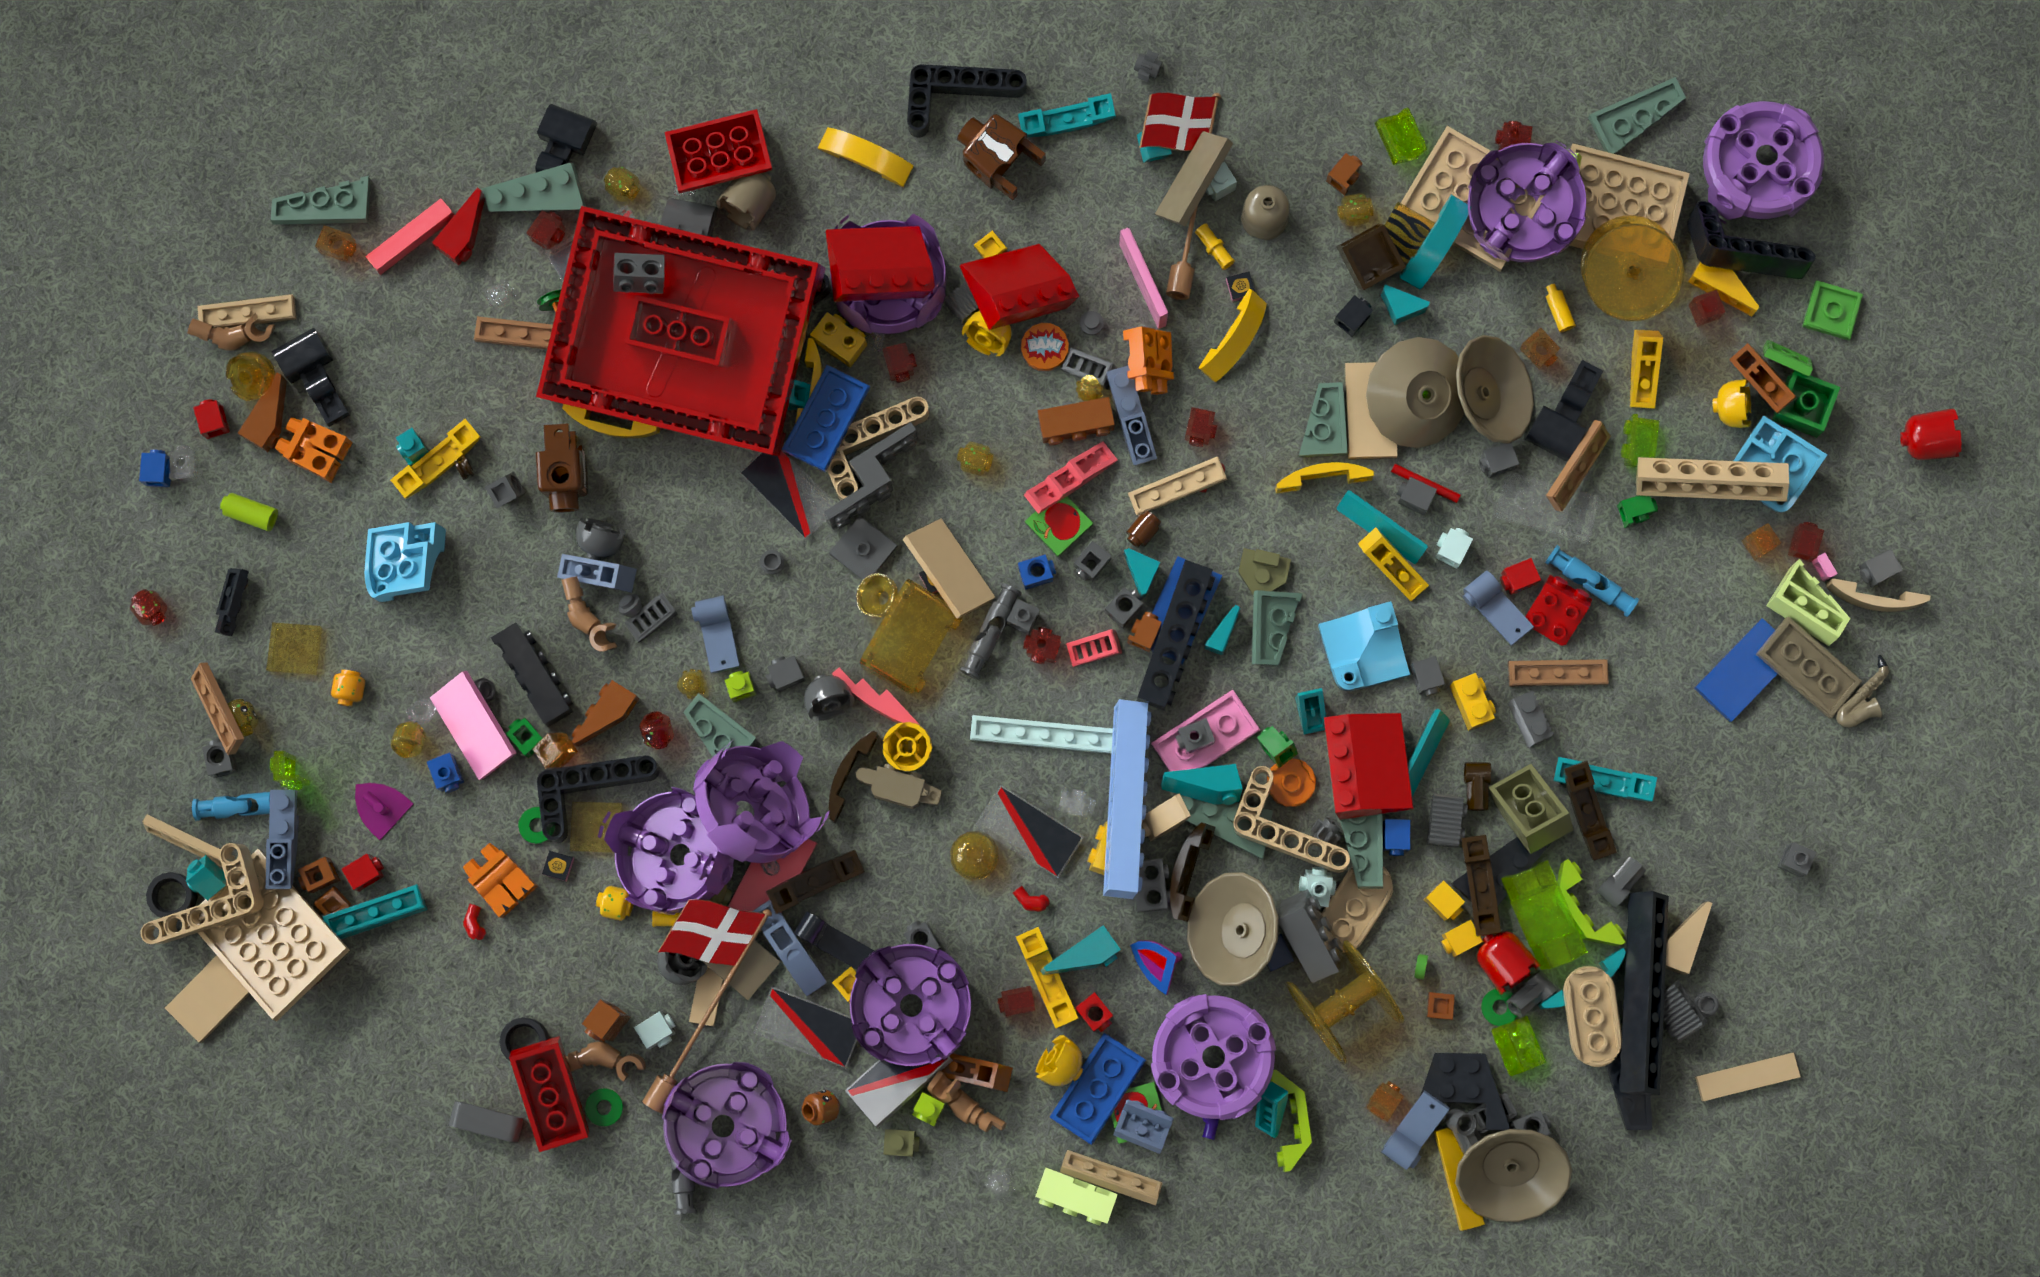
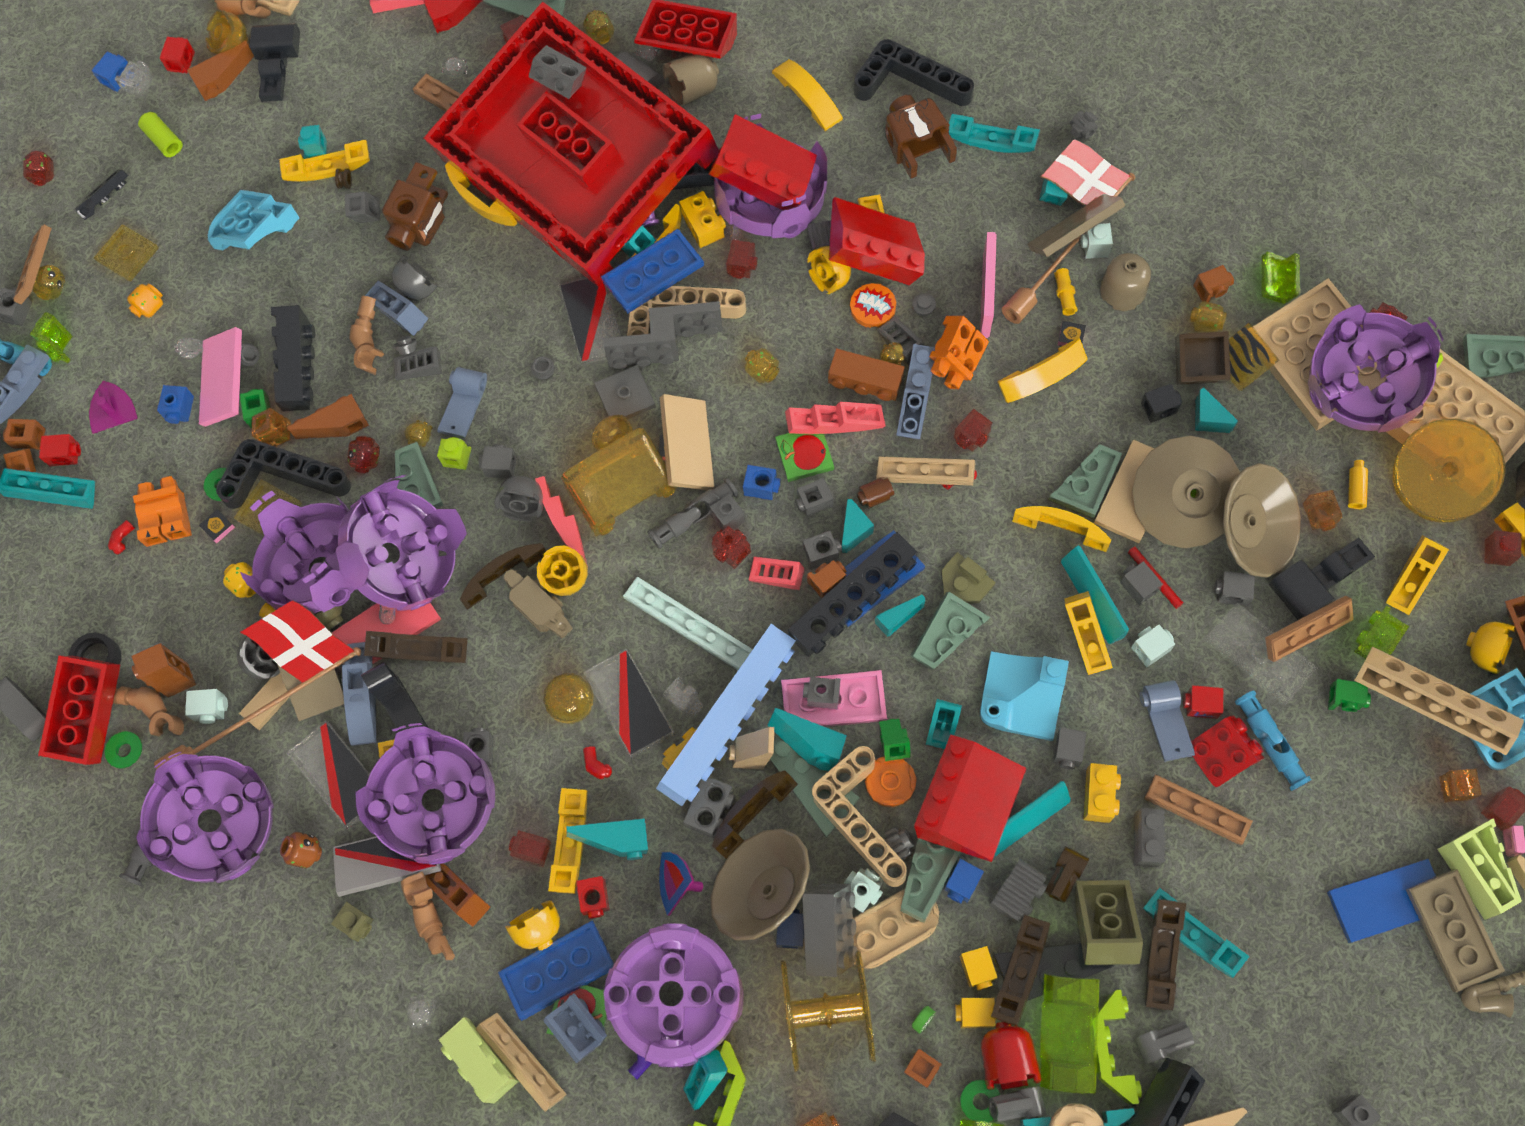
camera: 30 degrees right, 10 degrees down
(305, 447) = (234, 104): orange hips -> none
(408, 739) = (162, 362): clear yellow head -> none
(928, 1109) = (393, 903): lime brick -> none
(1436, 243) = (1268, 373): teal slope -> none

